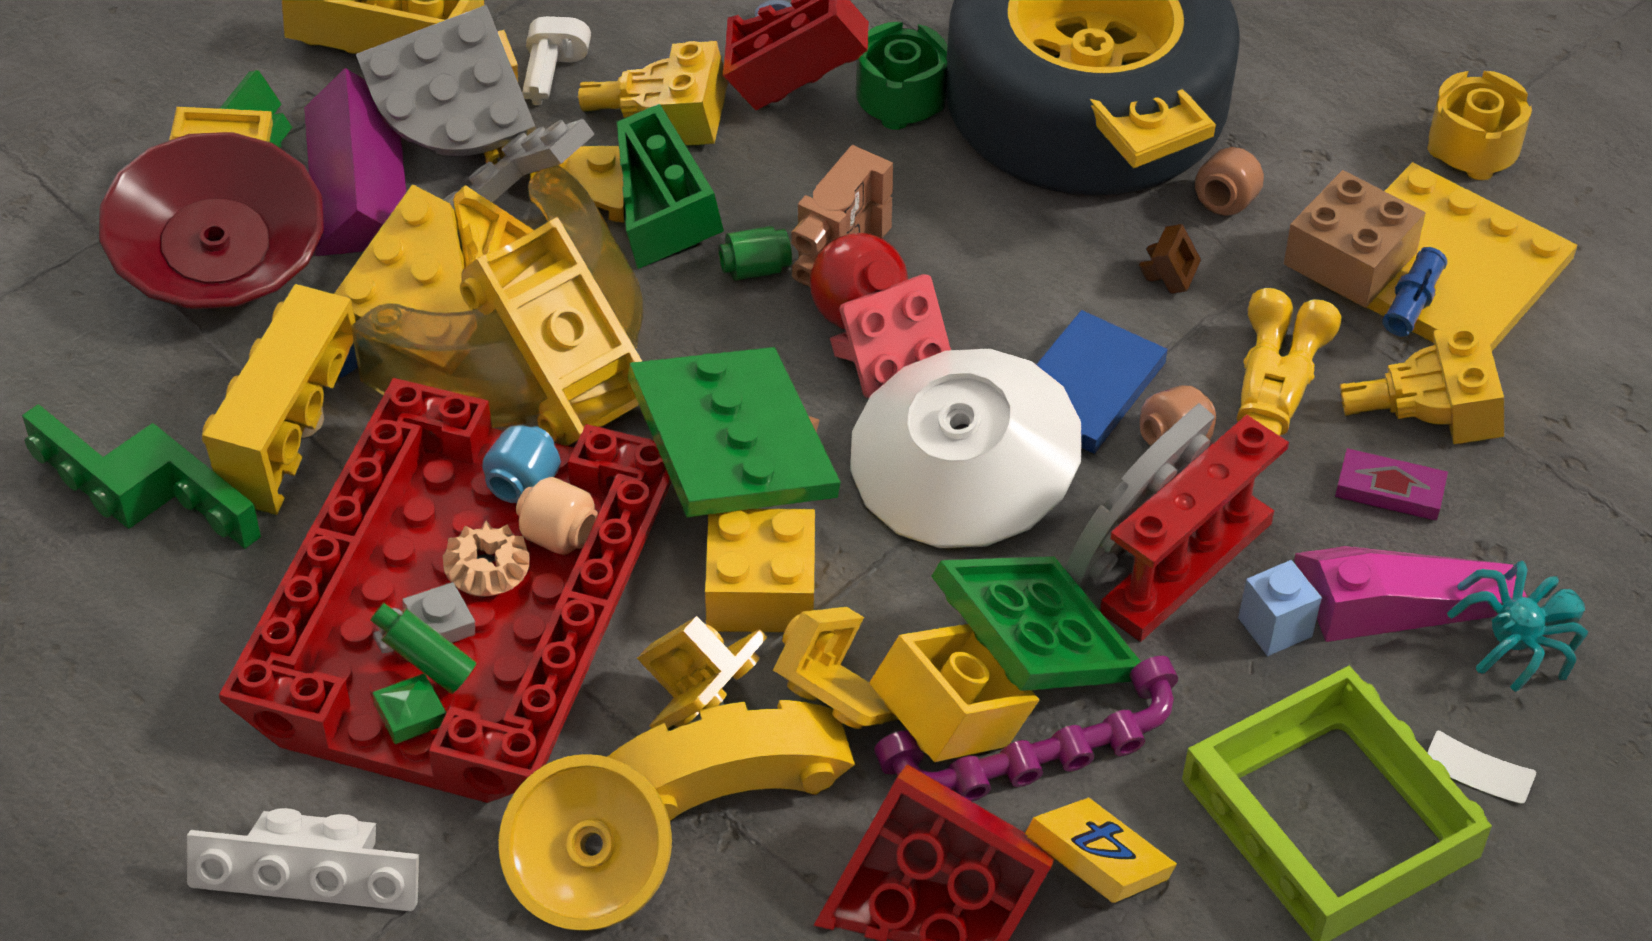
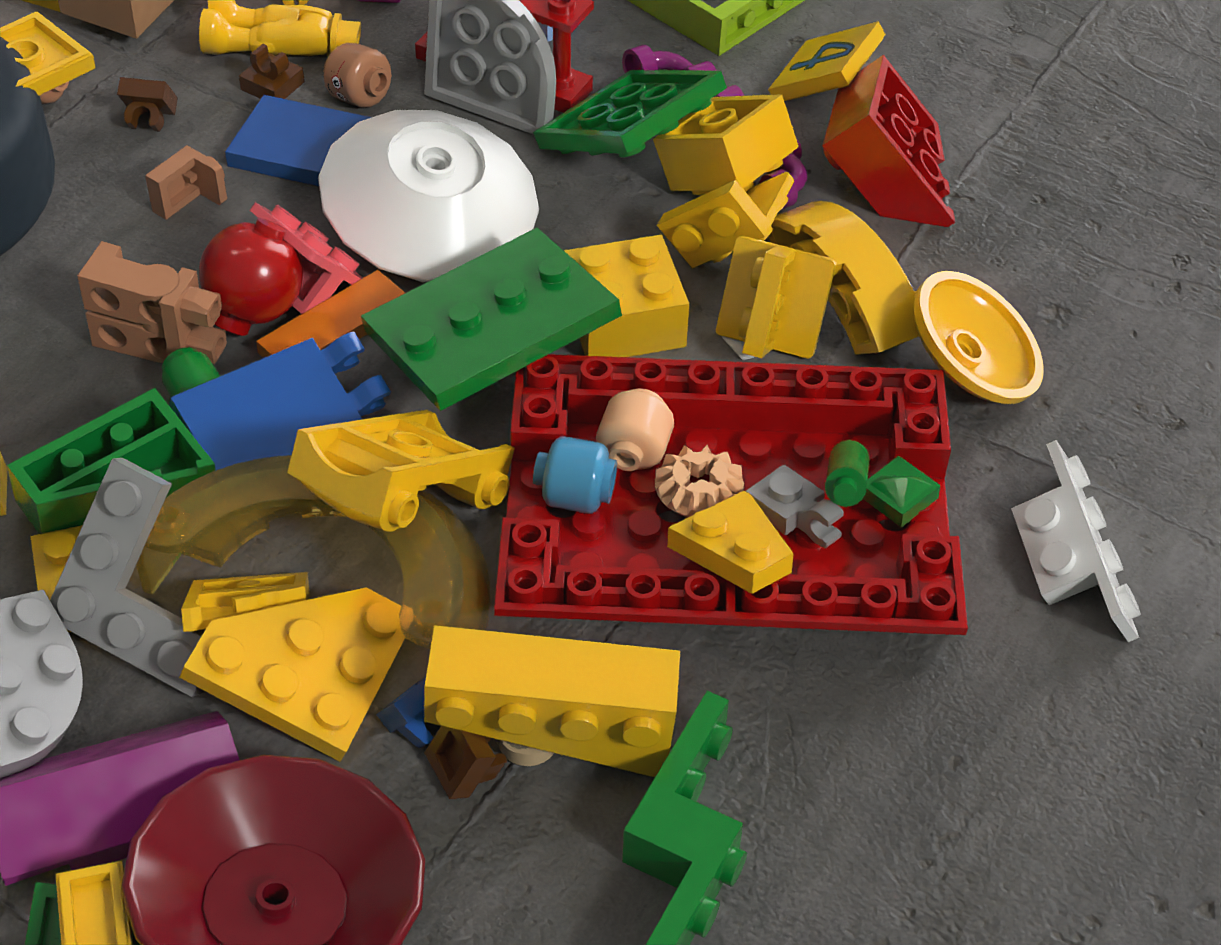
camera: 105 degrees left, 0 degrees up
(382, 544) = (734, 543): none -> yellow wing
(696, 289) = (265, 403): none -> blue tile
(815, 363) = (333, 316): none -> orange tile
(1038, 270) = (183, 179): none -> nougat bracket
(1205, 363) = (270, 75): none -> reddish brown tile

